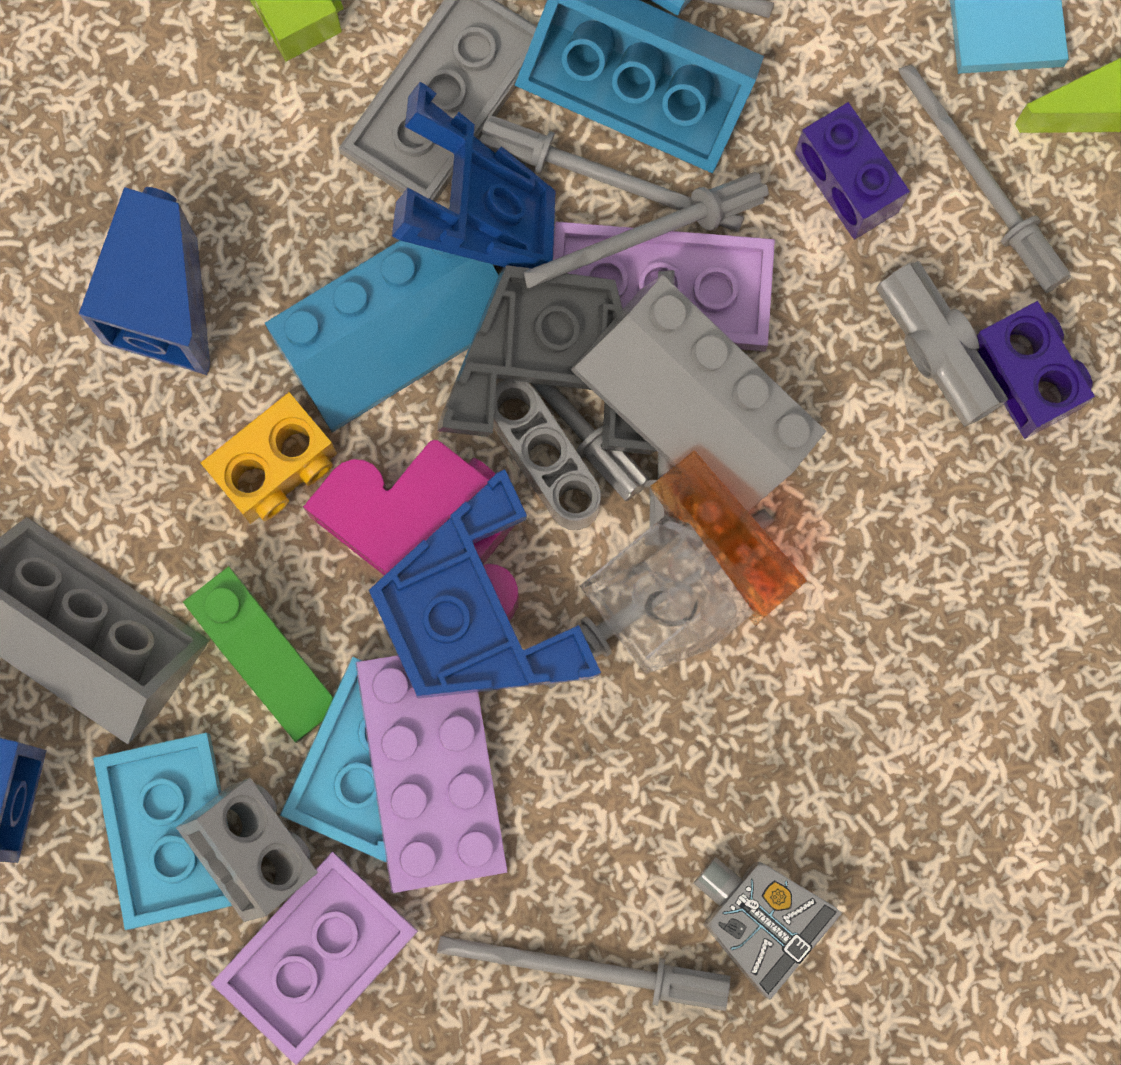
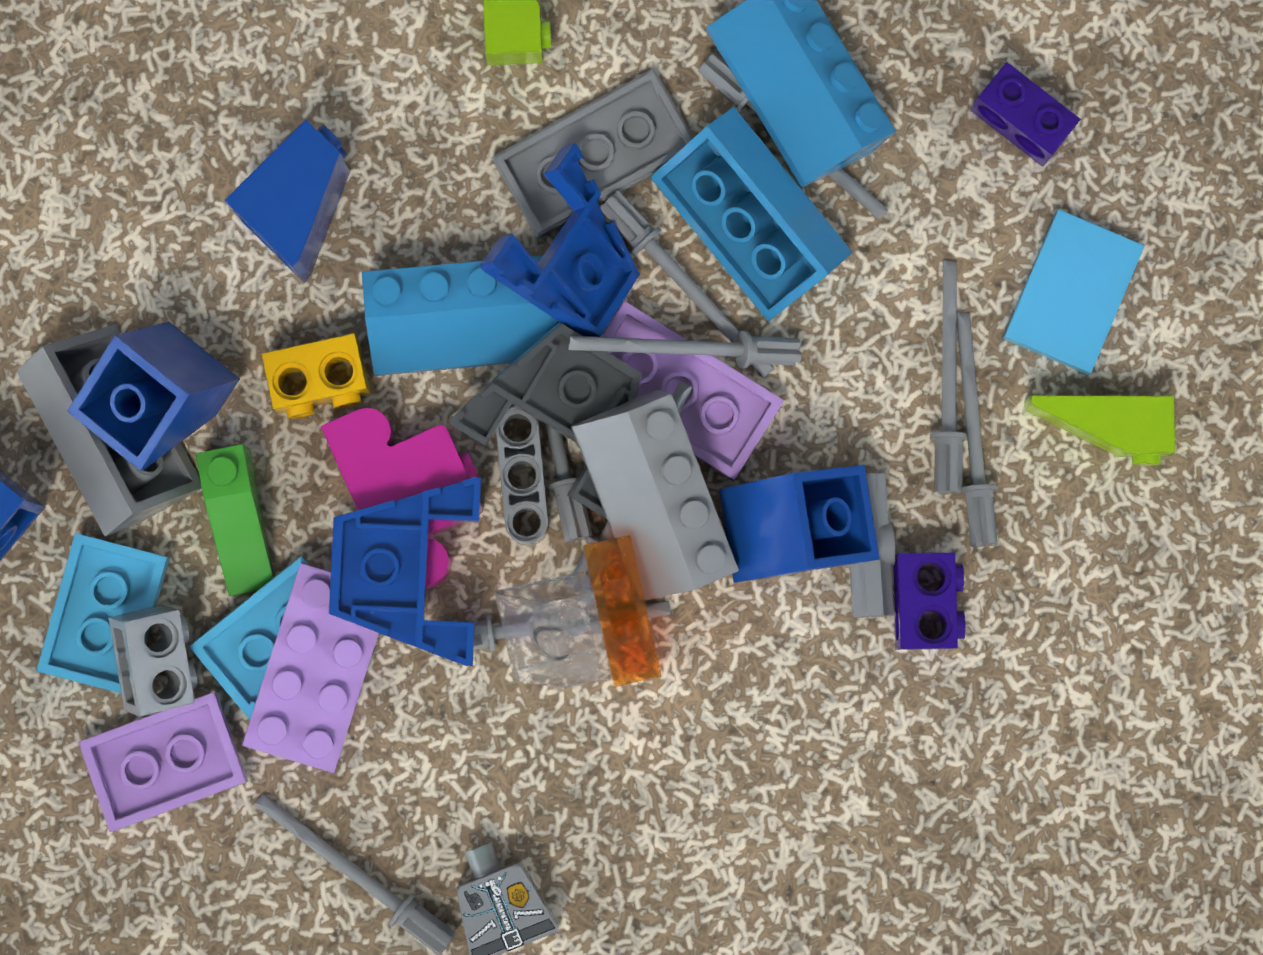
camera: 25 degrees right, 5 degrees up
(100, 561) = (151, 392): none -> blue slope
(851, 170) = (871, 376): dark purple brick -> none
(862, 349) = (799, 522): none -> blue slope
(963, 197) = (949, 443): none -> light grey piece

